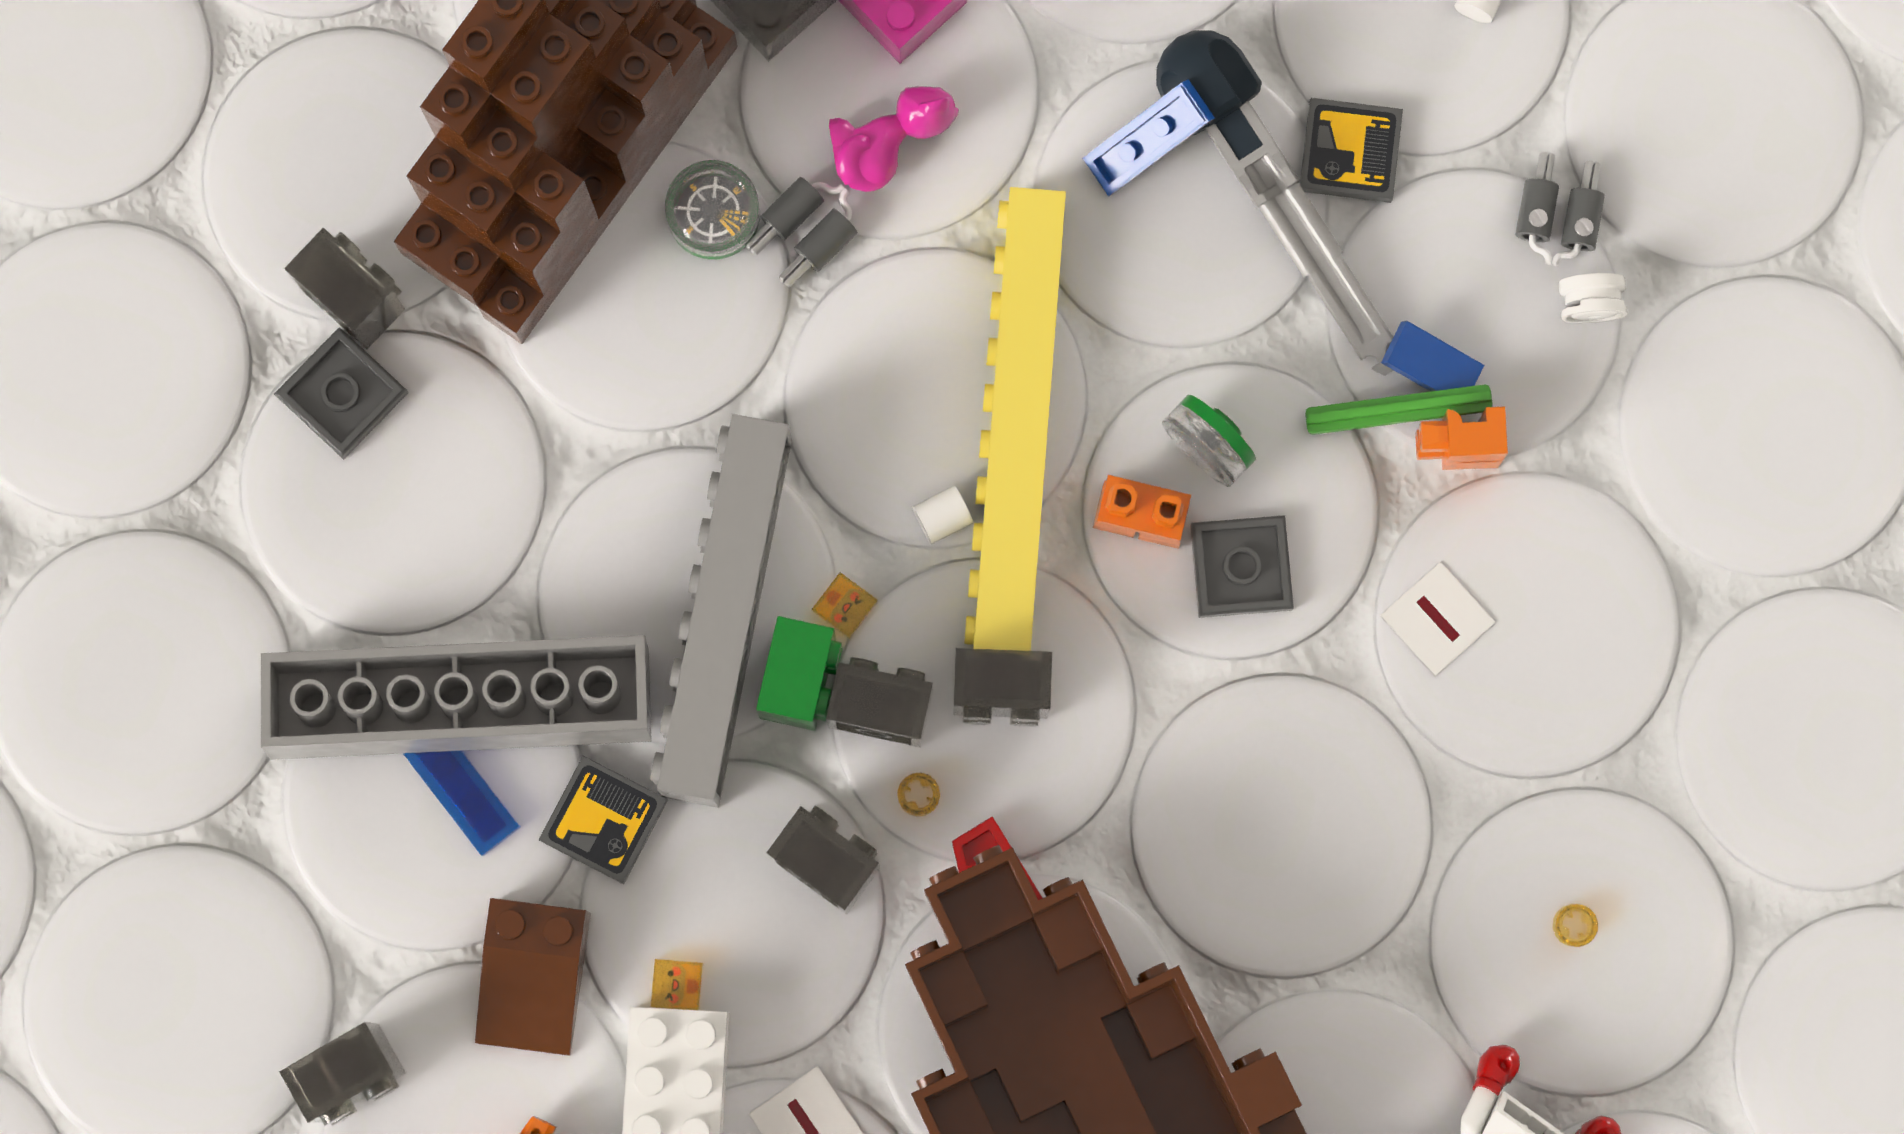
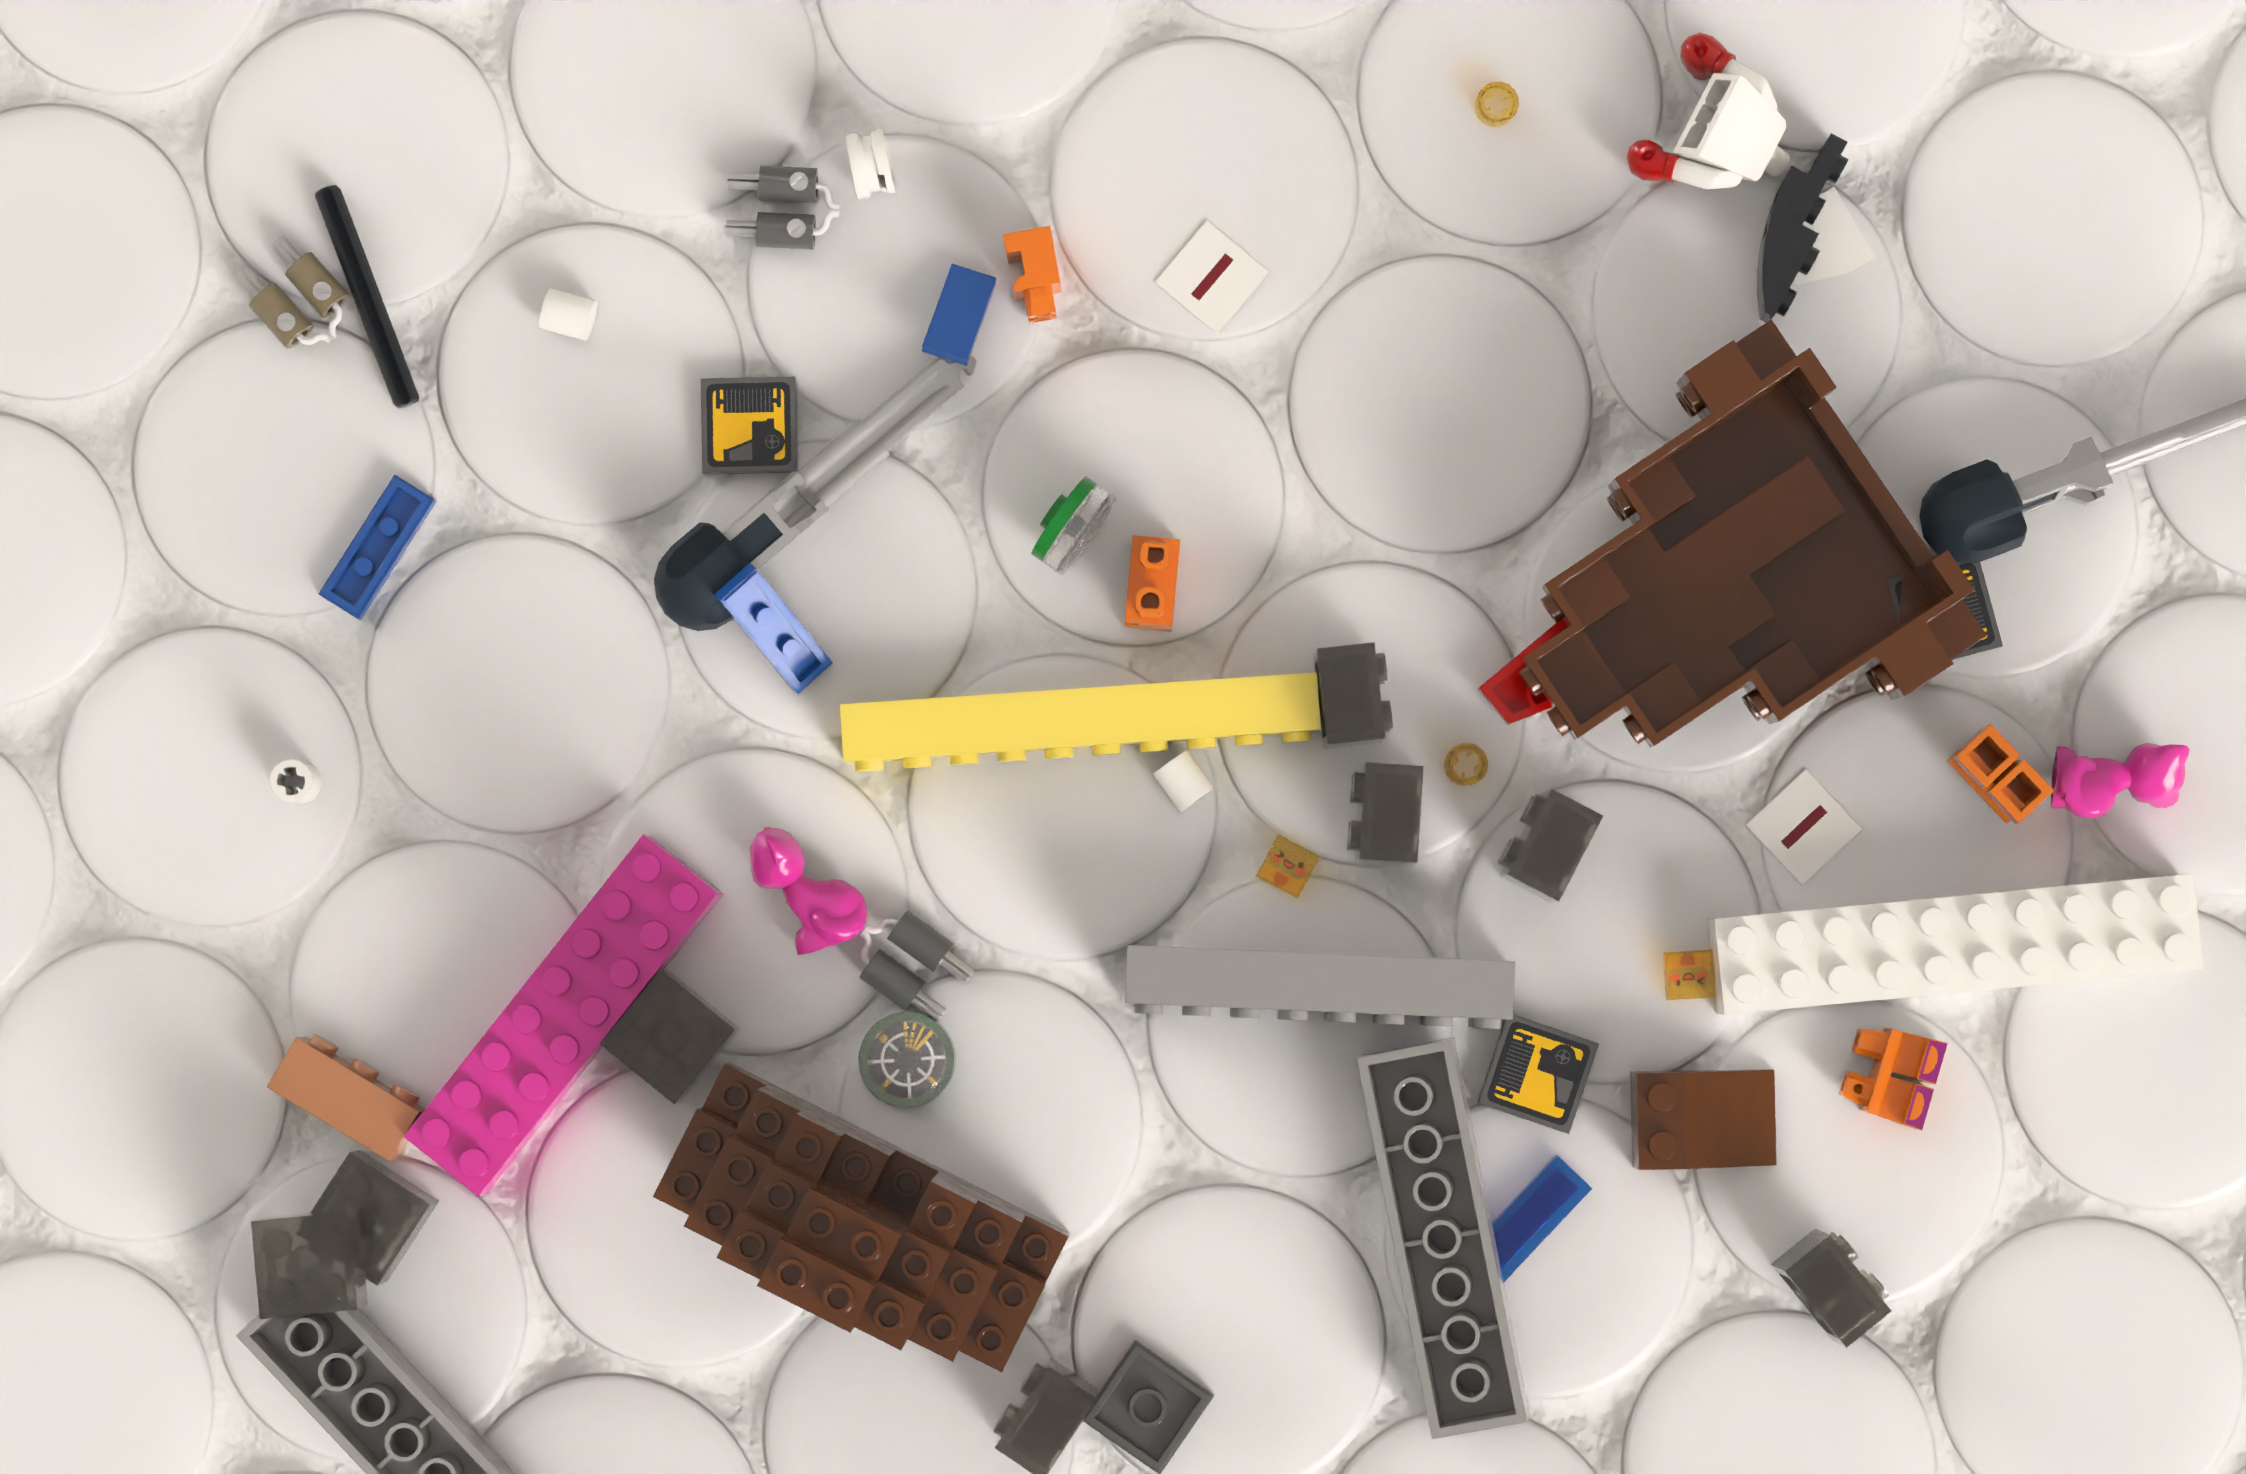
camera: 90 degrees left, 5 degrees up
(798, 673) = (1370, 899): green brick -> none
(1241, 566) = (1189, 477): dark grey tile -> none
(1397, 409) = (1011, 342): bright green axle -> none

